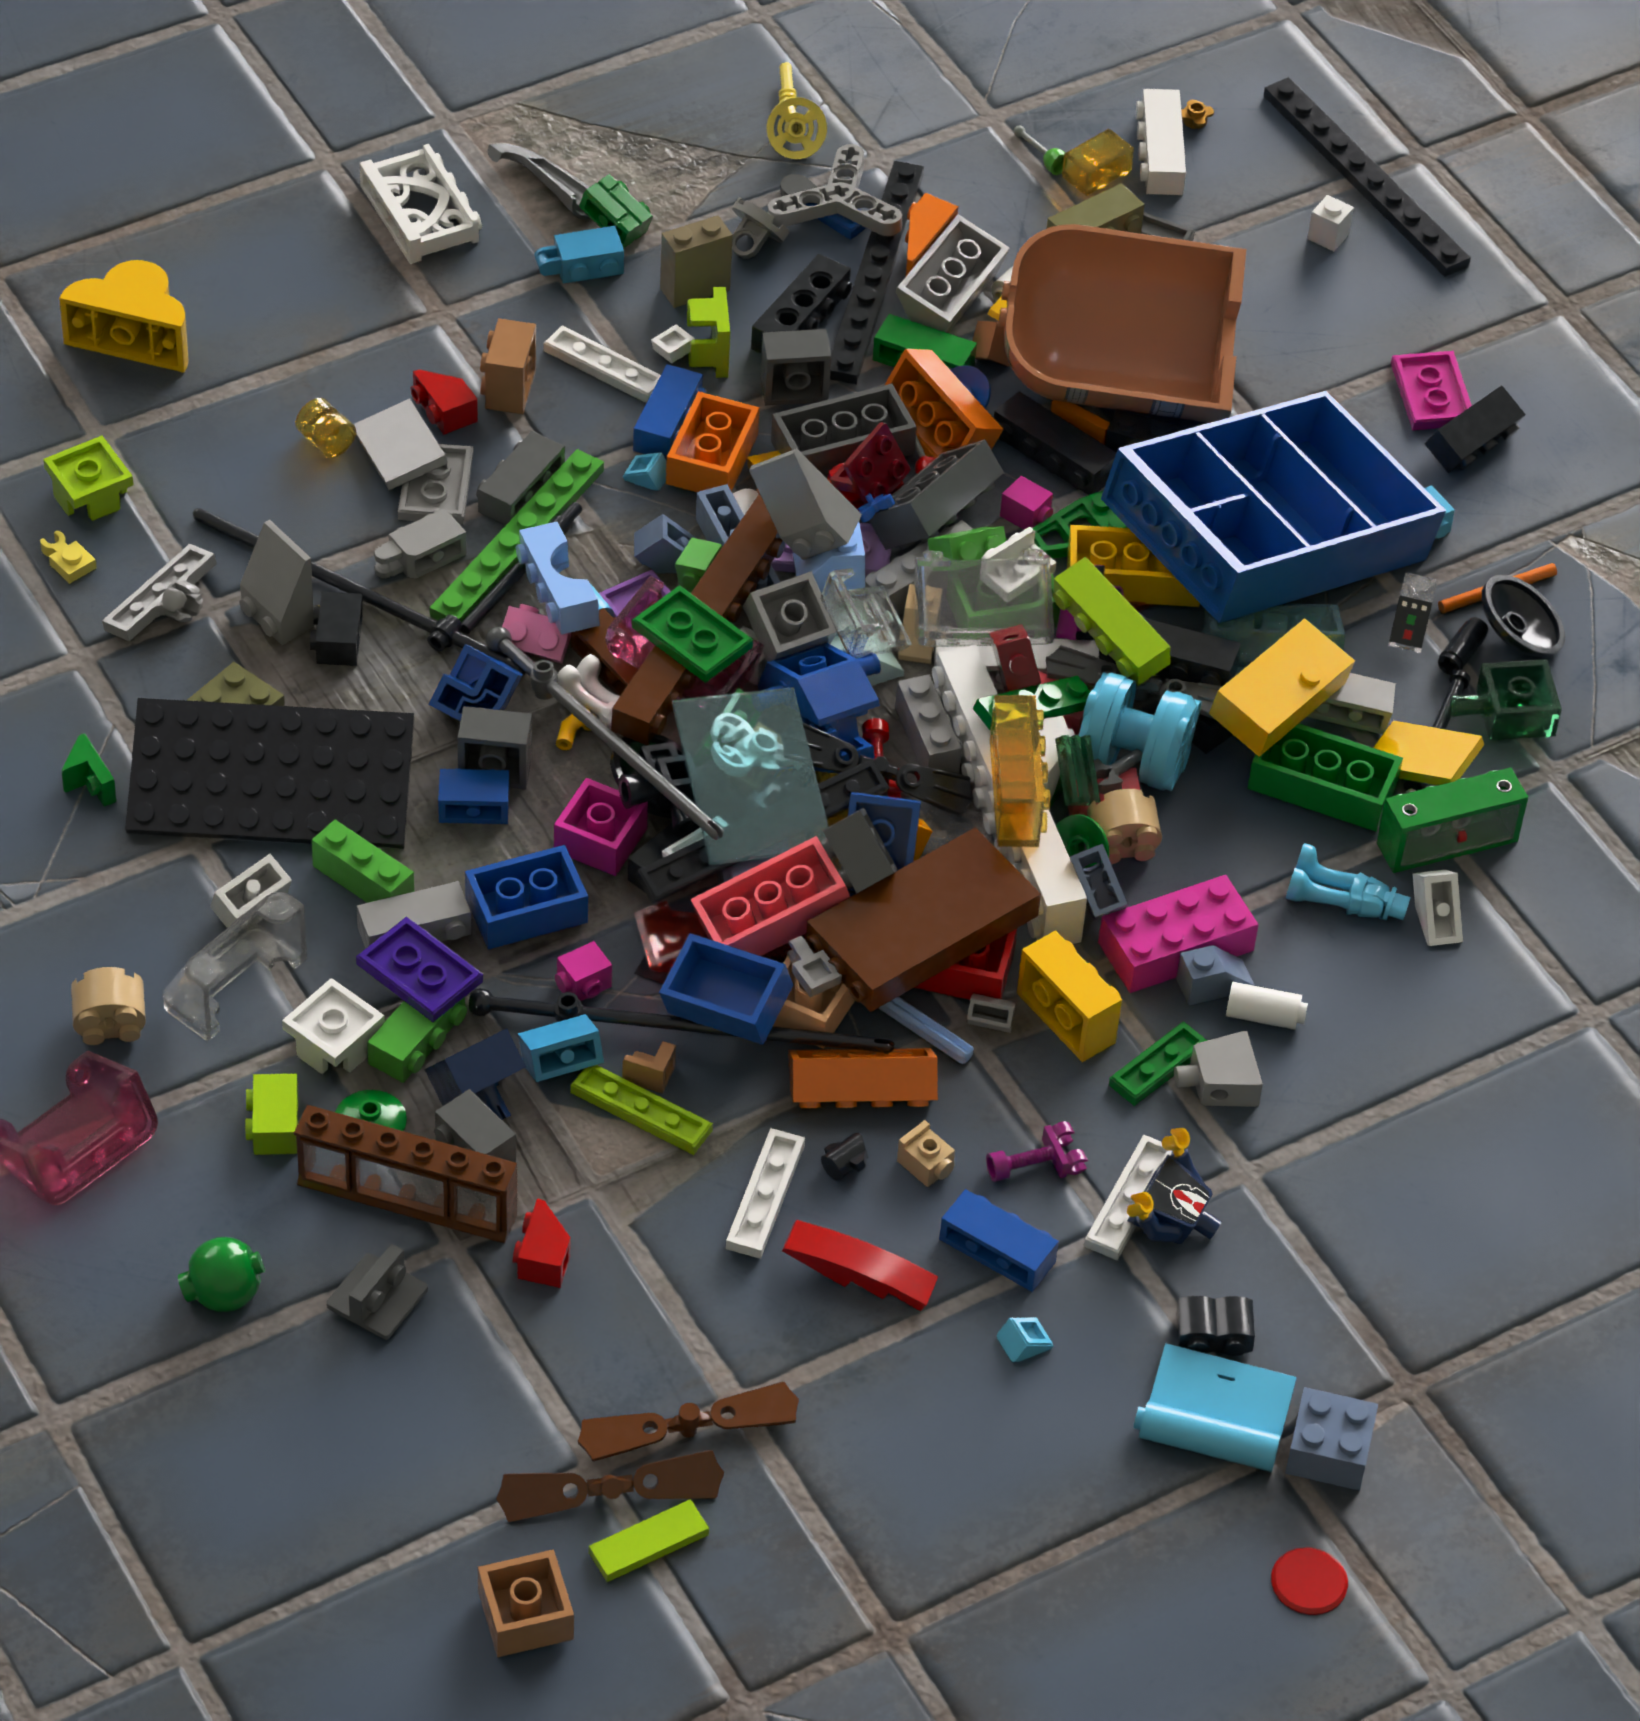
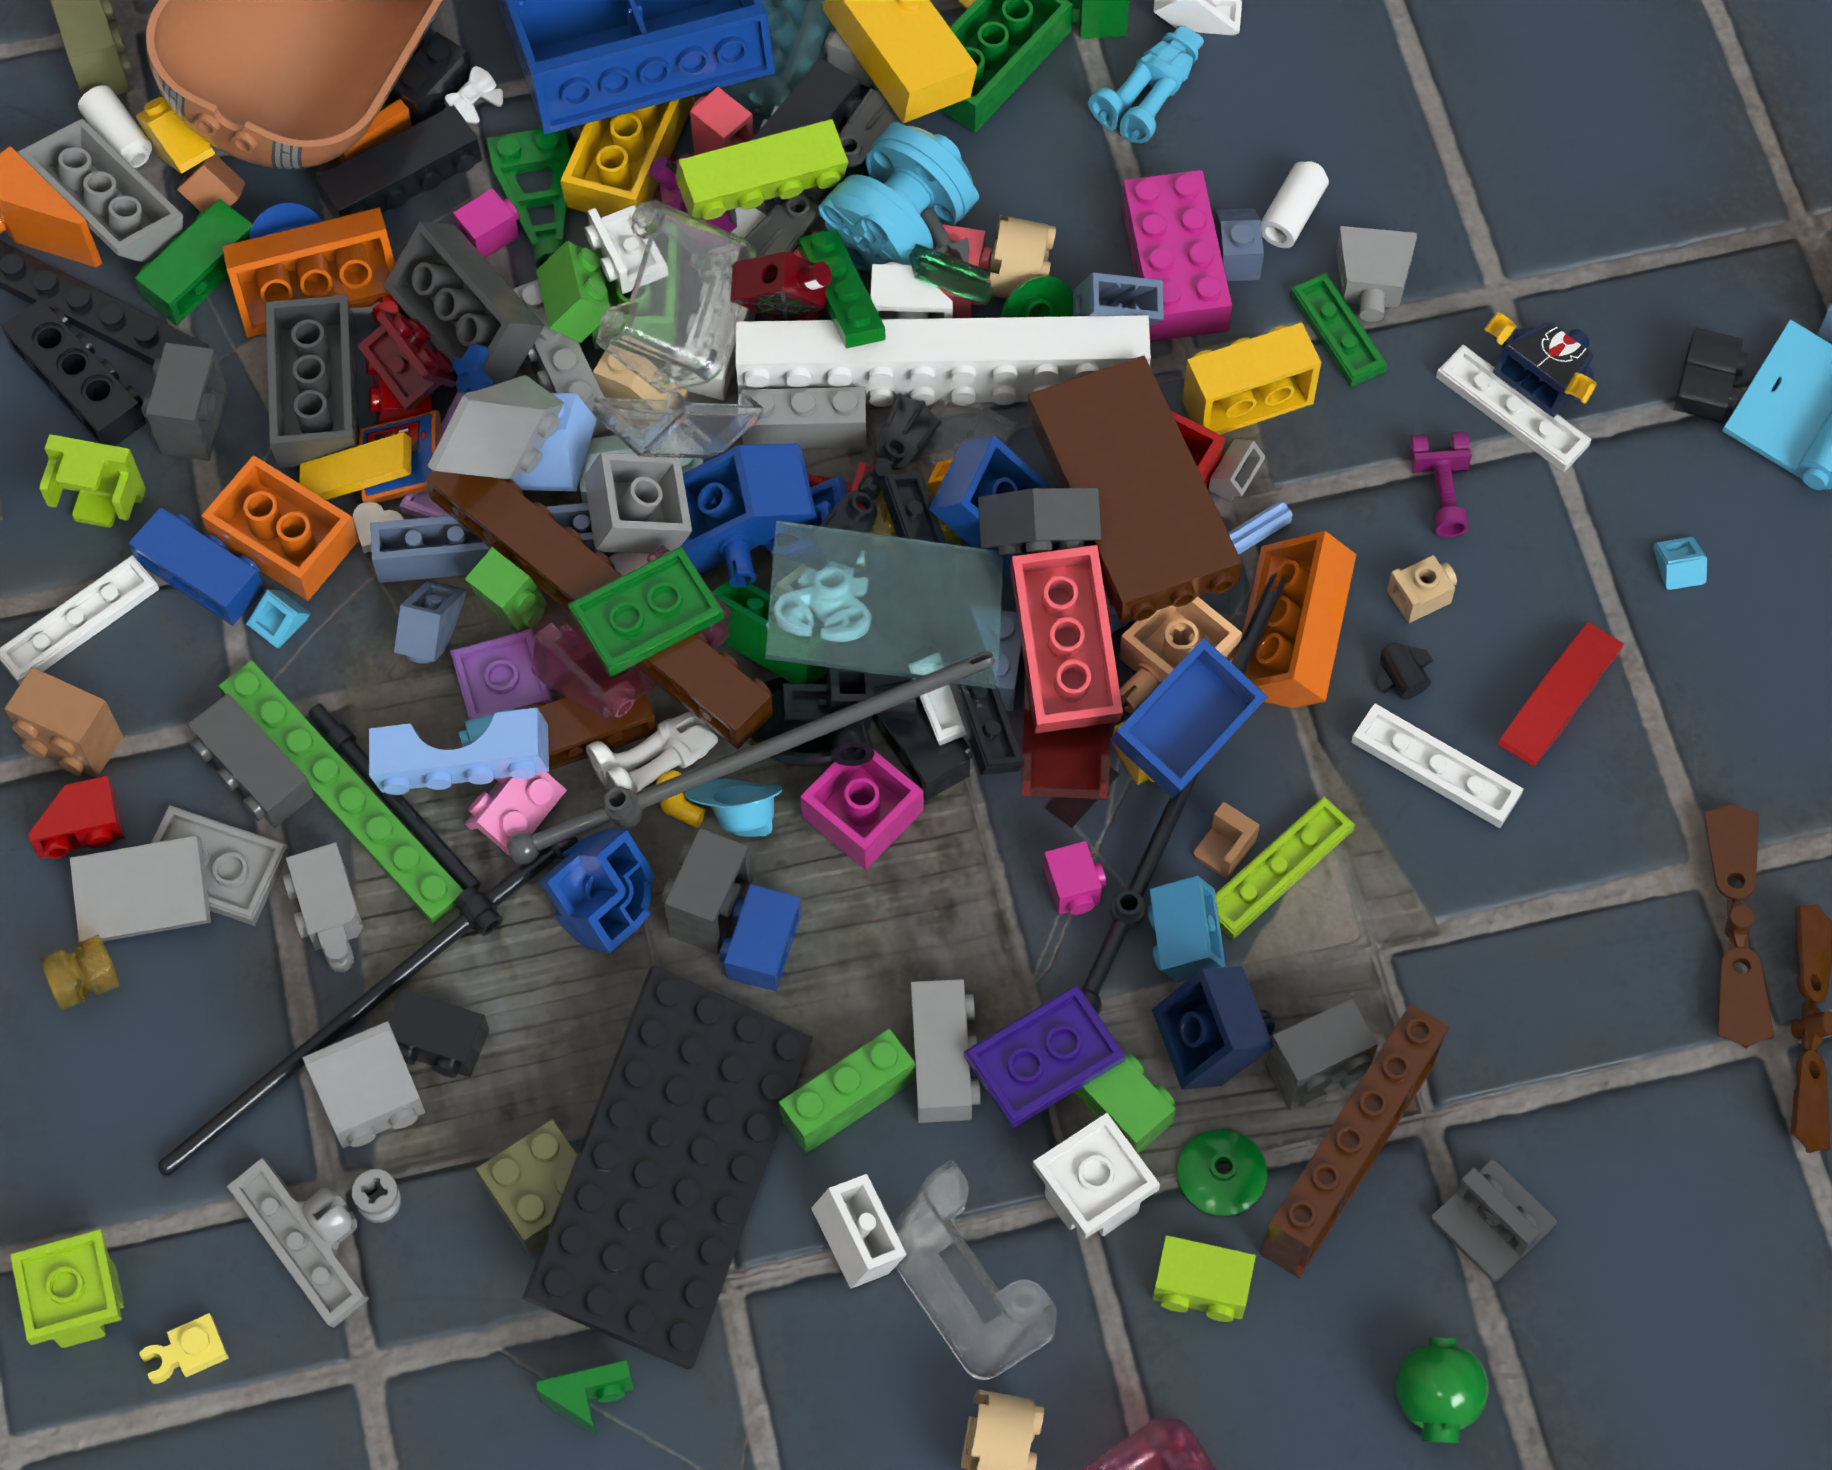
camera: 70 degrees left, 15 degrees up
(206, 626) = (381, 1204): none -> light grey wheel
(526, 897) = (950, 911): blue brick -> none
(545, 1247) = (1475, 1017): red slope -> none
(578, 755) = (739, 805): none -> medium azure piece
(673, 343) = (79, 531): white plate -> none
(812, 969) = (1176, 620): light grey plate -> none
(999, 1240) = (1554, 547): blue brick -> none
(1018, 771) = (975, 322): clear yellow brick -> none
(1165, 603) = (719, 122): none -> coral brick

